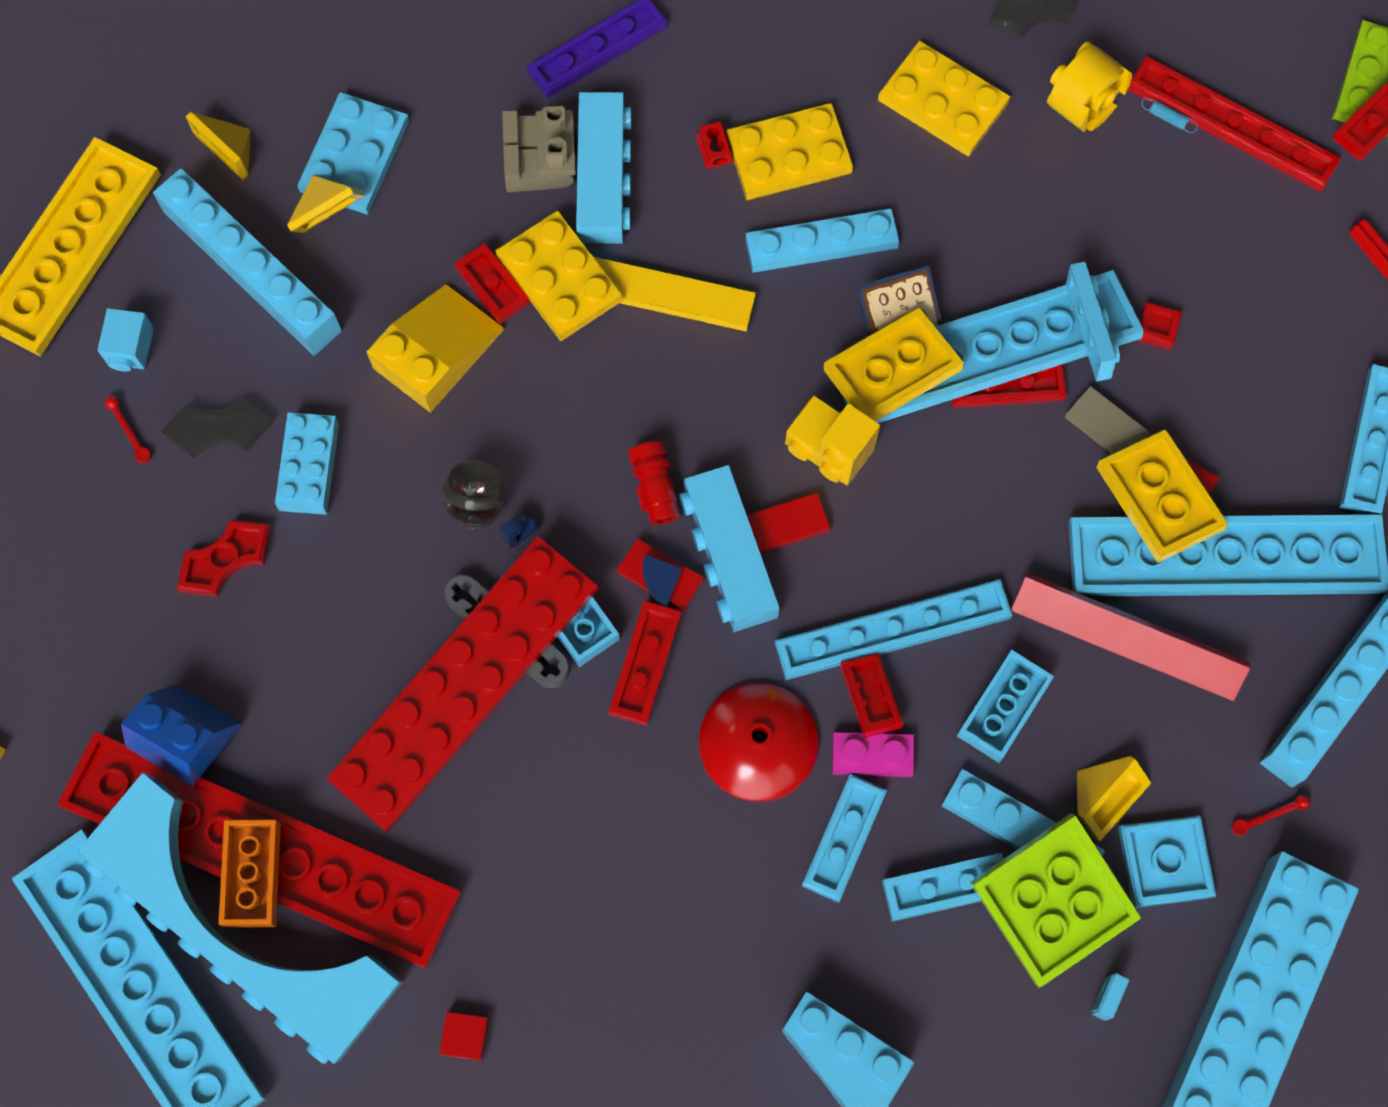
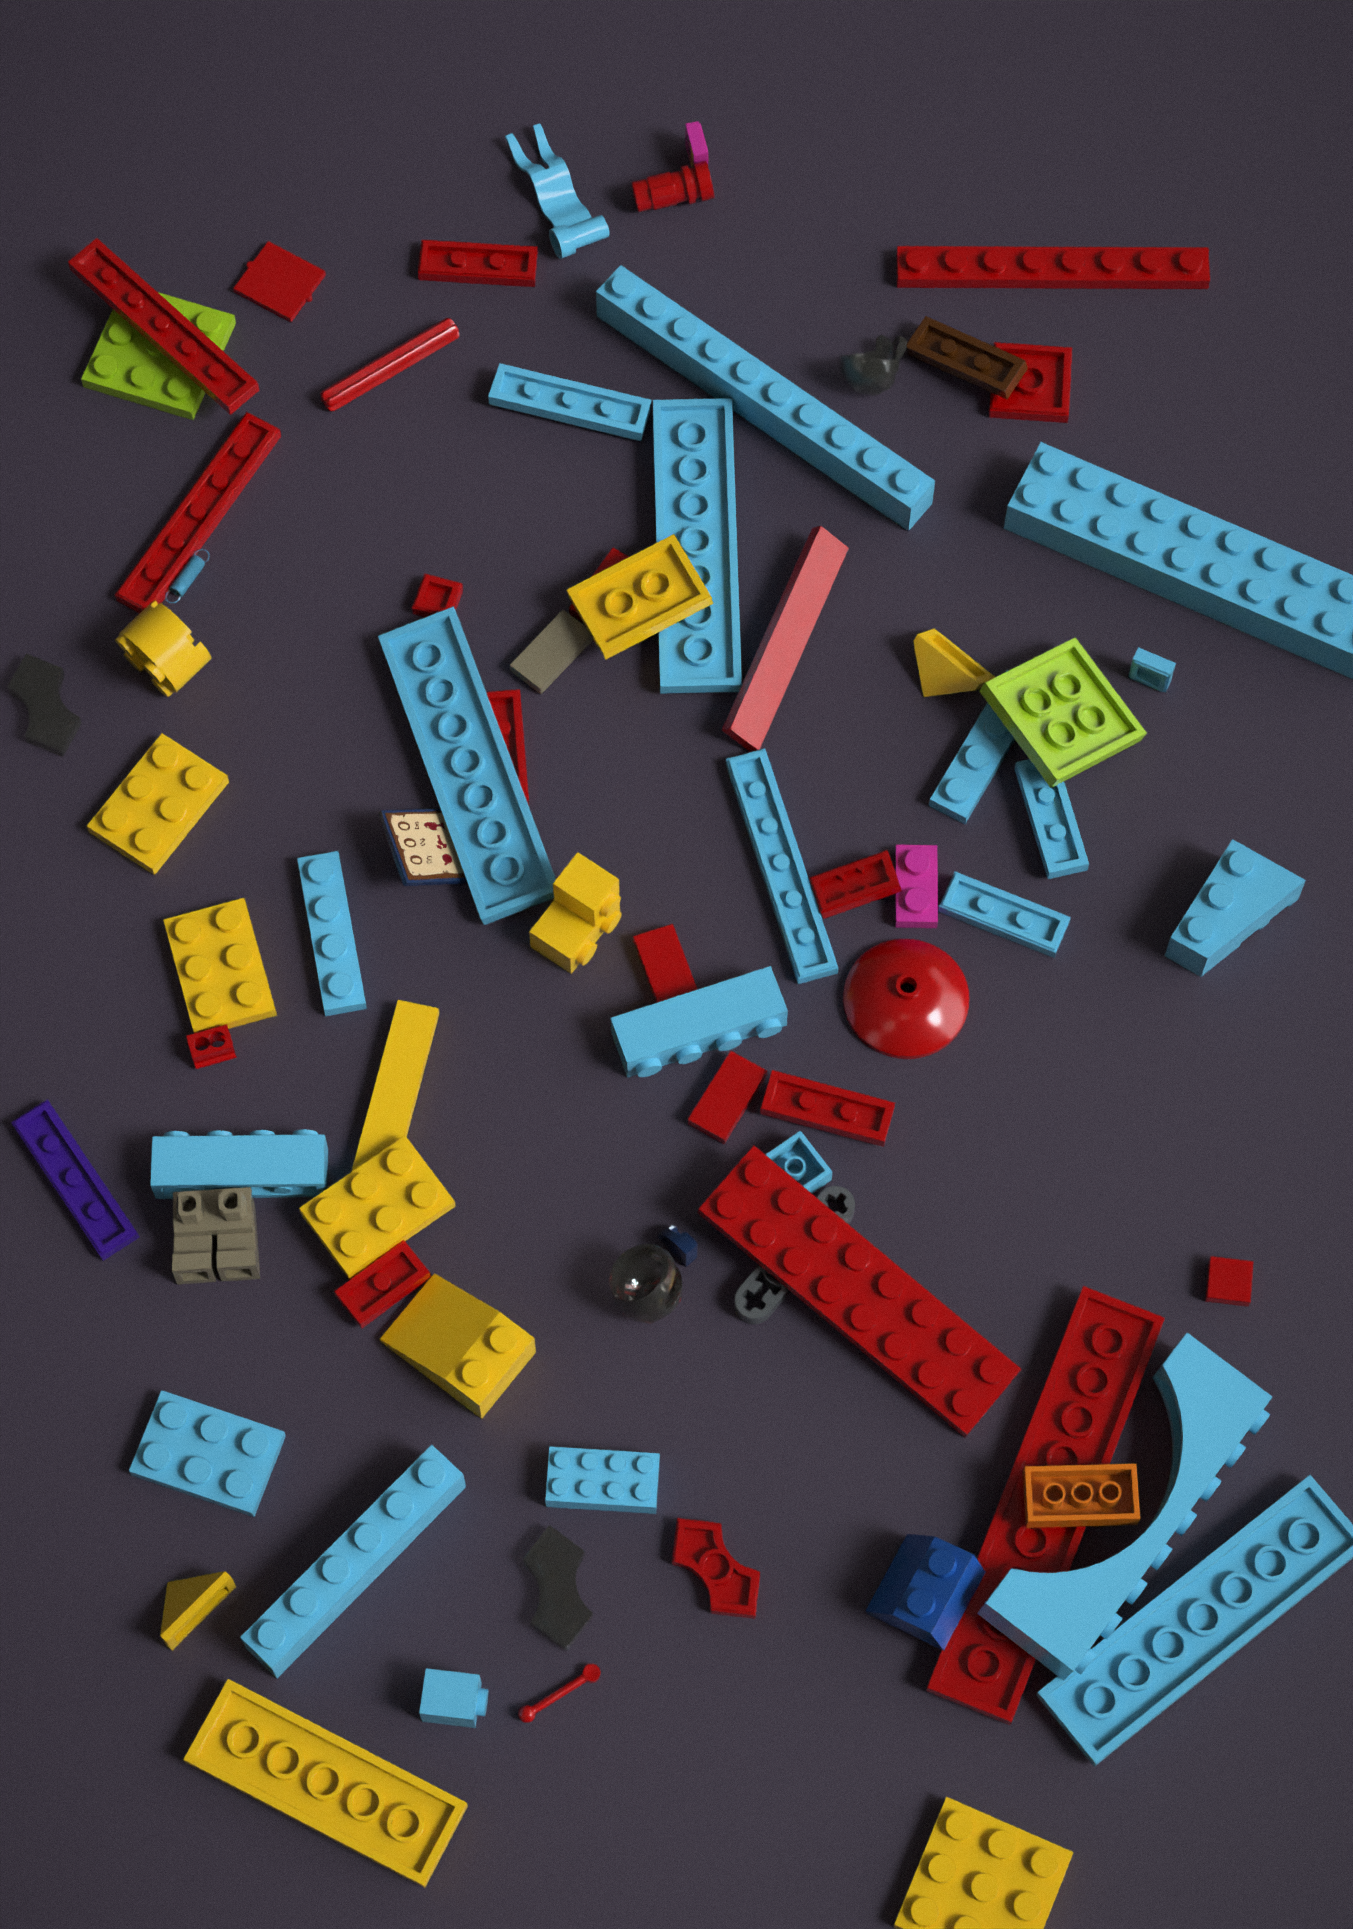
camera: 90 degrees left, 5 degrees down
(320, 201) = (279, 1474): yellow slope -> none
(656, 487) = (630, 1100): red axle -> none
(660, 579) = (737, 1090): dark blue tile -> none
(893, 365) = (497, 849): yellow plate -> none
(1005, 706) = (863, 756): medium azure piece -> none
(1092, 321) = (448, 651): medium azure plate -> none
(1166, 861) = (1012, 617): medium azure tile -> none
(1241, 827) = (975, 549): red hinge -> none

